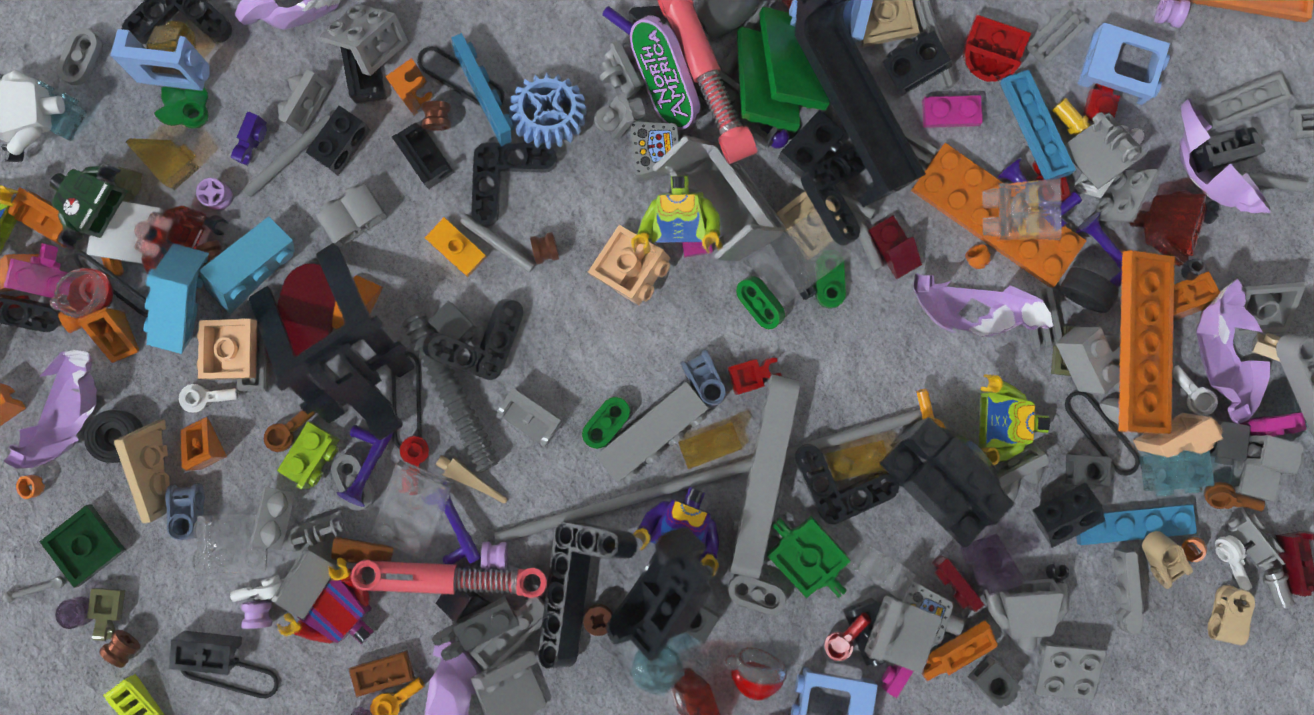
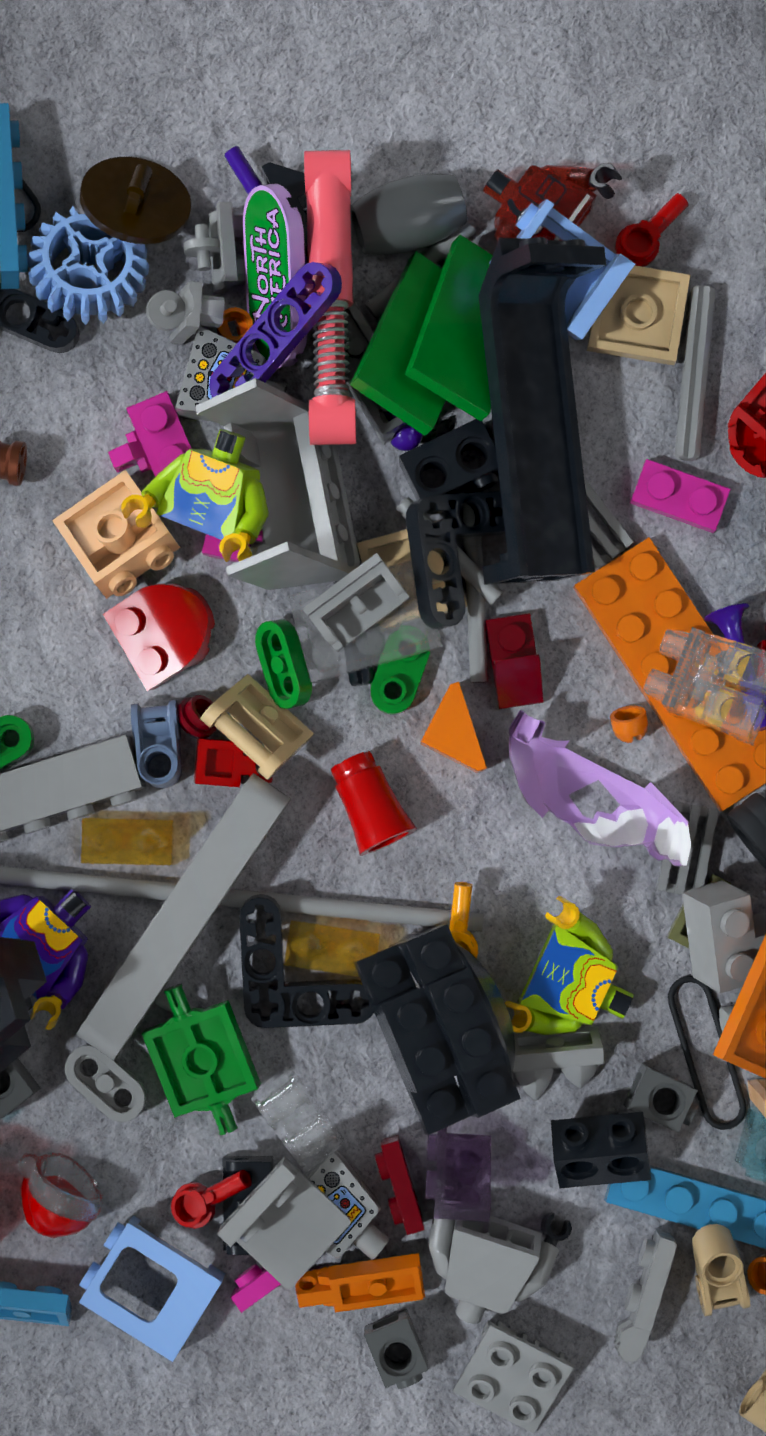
camera: 25 degrees right, 0 degrees up
(560, 61) = (135, 200): none -> dark brown shield
(629, 199) = (156, 436): none -> dark pink hinge
(653, 112) = (242, 322): none -> orange hinge
(678, 104) = (270, 329): none -> dark purple beam
(679, 311) = (162, 630): none -> red slope
(722, 354) = (189, 715): none -> dark red plate
(762, 345) = (257, 711): none -> tan plate
(795, 247) = (356, 603): none -> light grey hinge
(846, 364) = (370, 804): none -> red plant
(878, 303) = (453, 732): none -> orange slope
(921, 69) = (652, 417): black brick -> none

